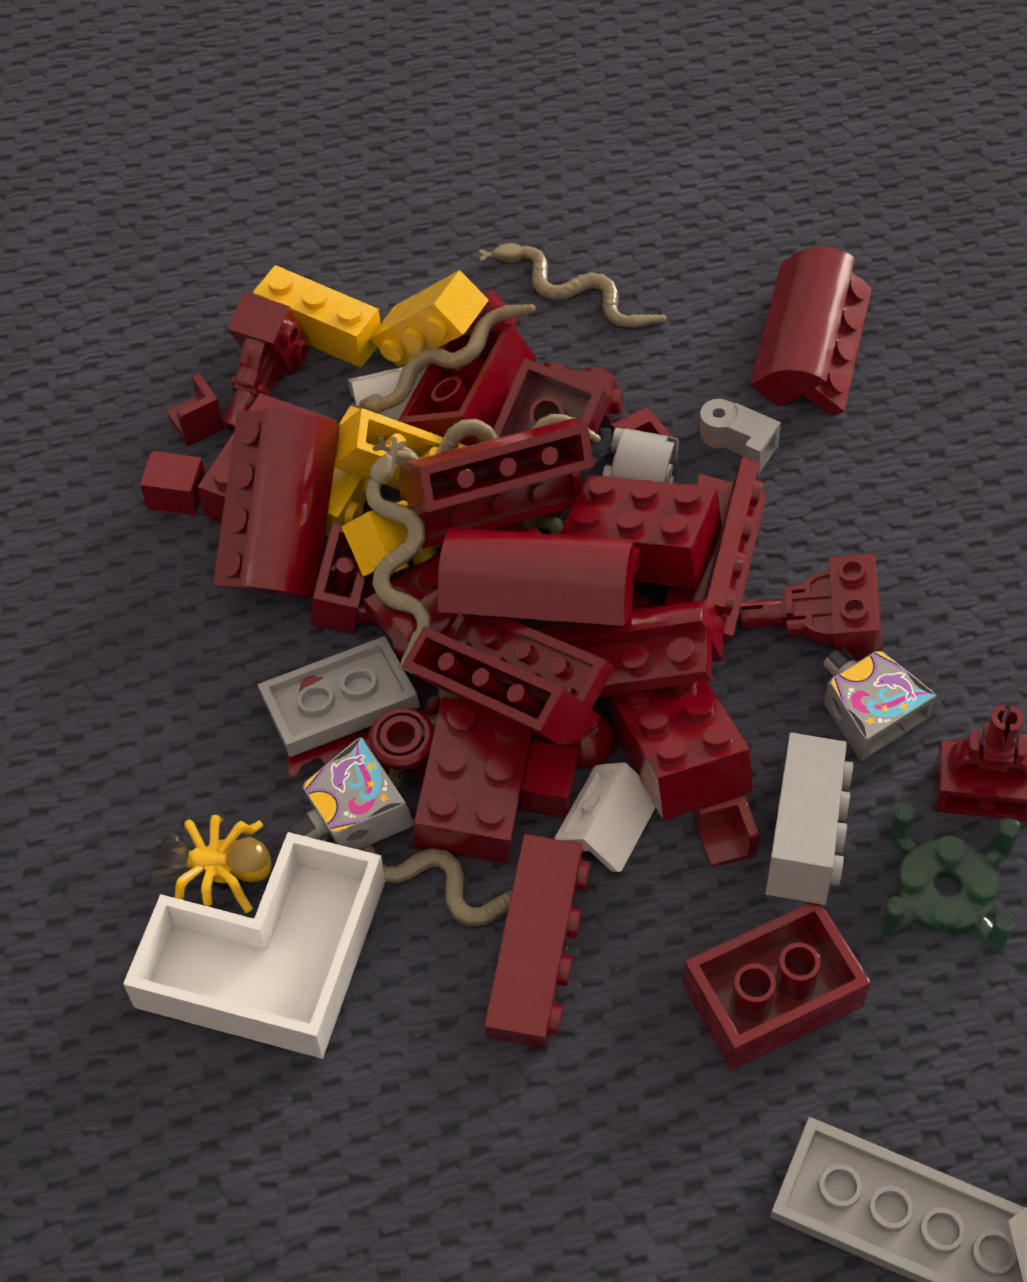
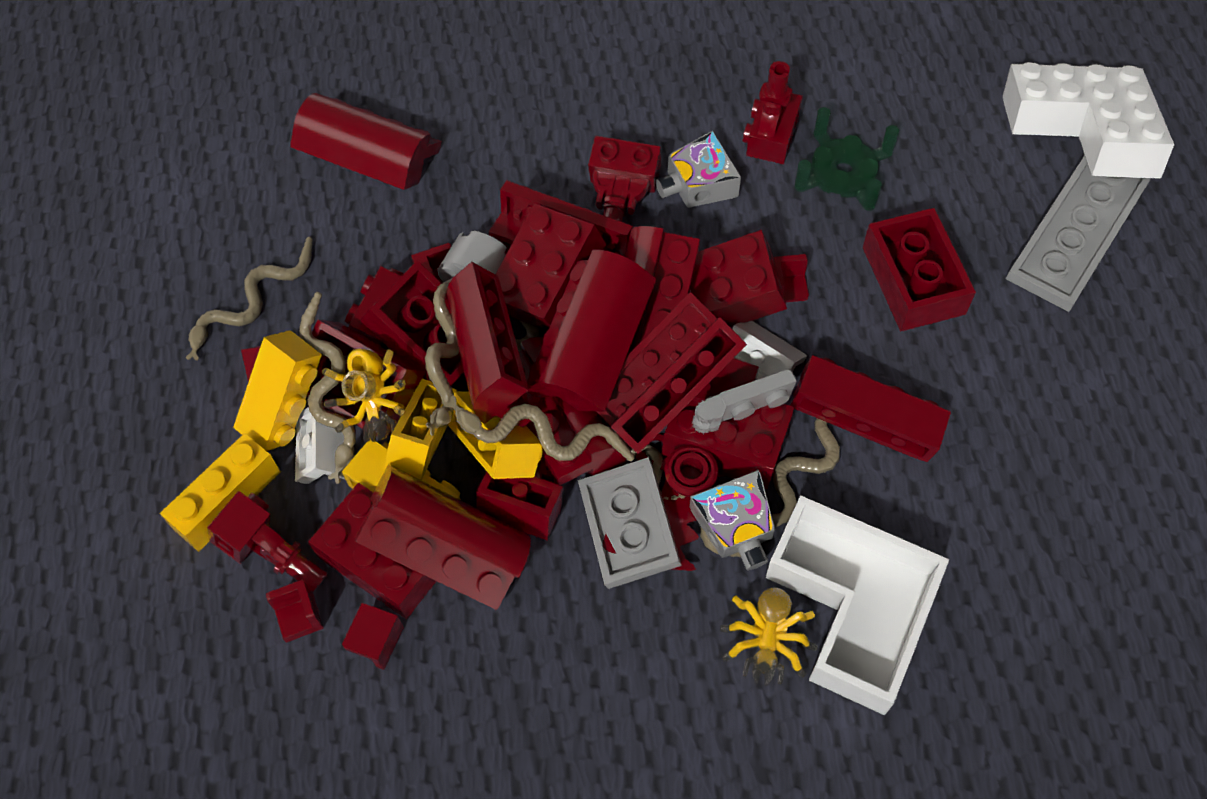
camera: 80 degrees left, 5 degrees up
(431, 383) = (366, 384): none -> animal
(485, 761) = (743, 401): none -> light grey hinge
(739, 430) = (444, 206): light grey leg -> none
(808, 819) = (804, 219): light grey brick -> none

